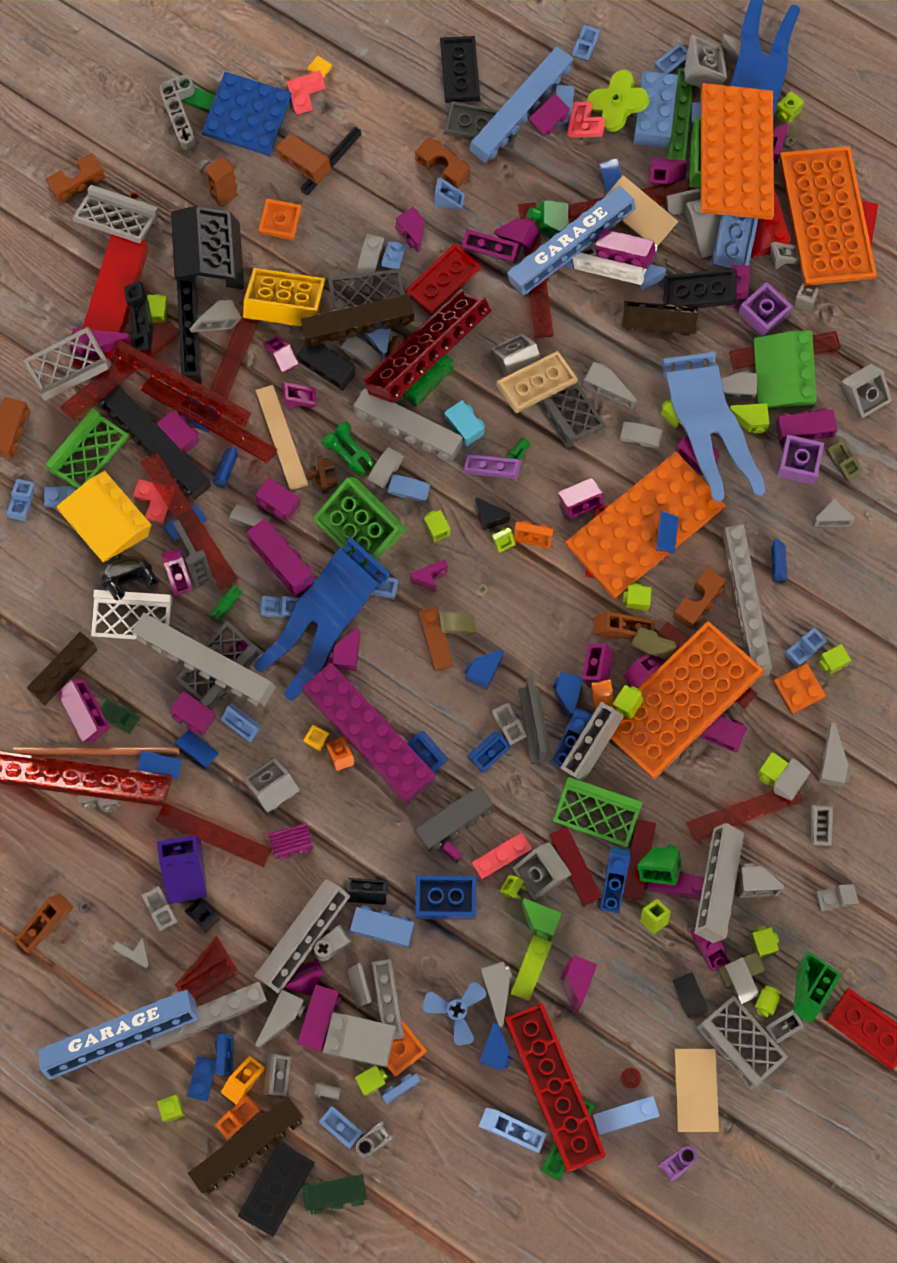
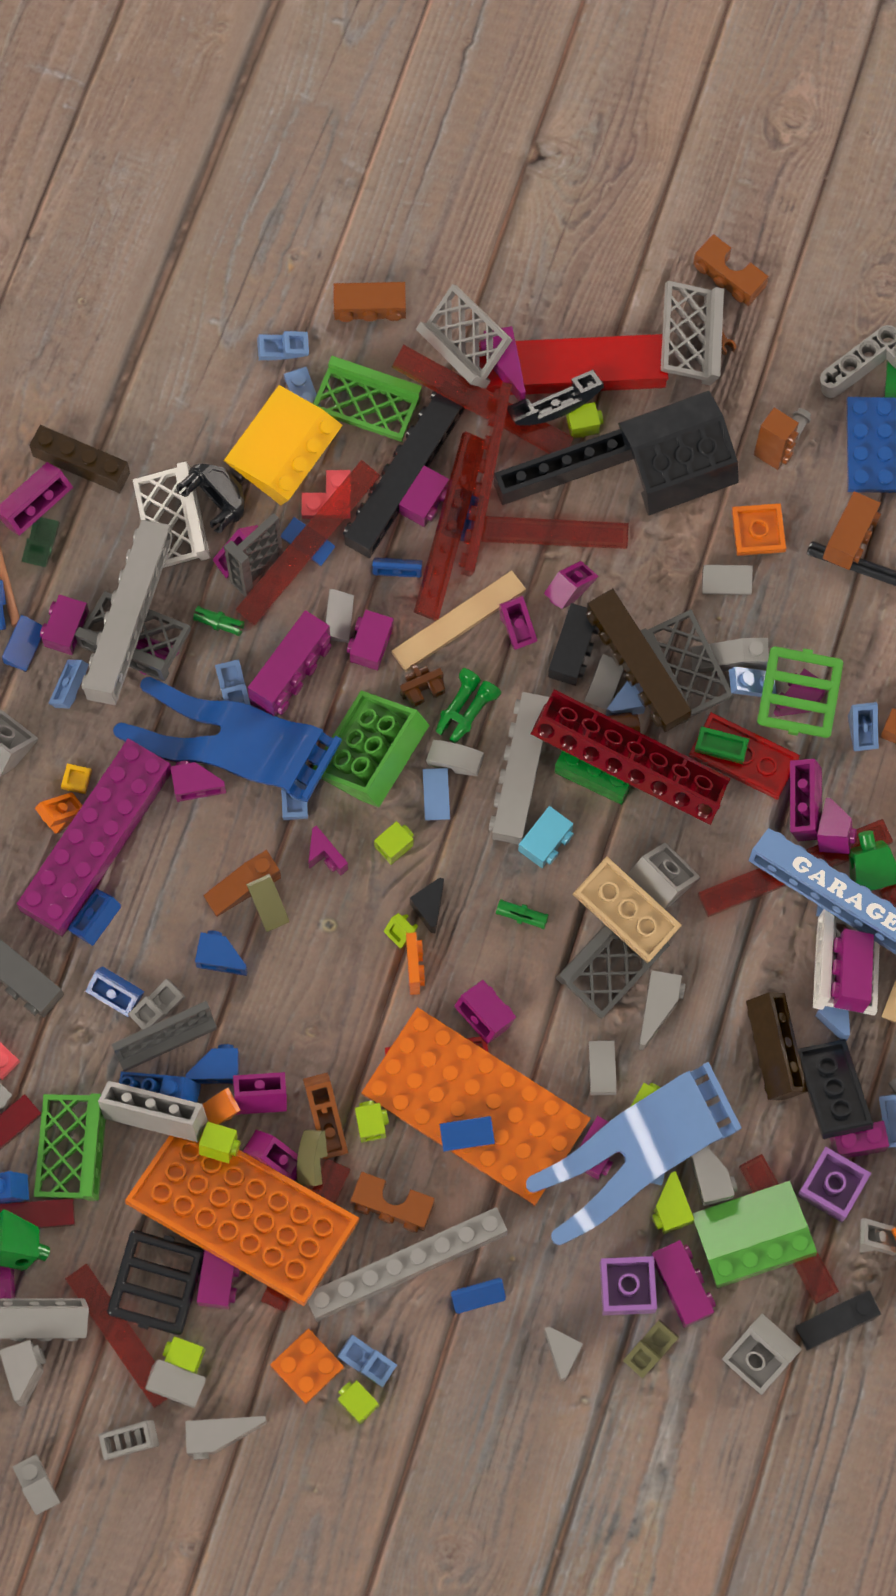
camera: 75 degrees right, 0 degrees up
(220, 316) = (593, 495): light grey slope -> none
(282, 296) = (650, 565): yellow slope -> none
(310, 251) = (727, 579): none -> light grey slope
(415, 203) = (828, 709): none -> bright green bar
(433, 289) = (721, 745): none -> green tile
(492, 466) = (495, 888): medium lavender tile -> none
(733, 762) = (189, 1278): none -> black bar
(855, 335) = (838, 1320): none -> black slope

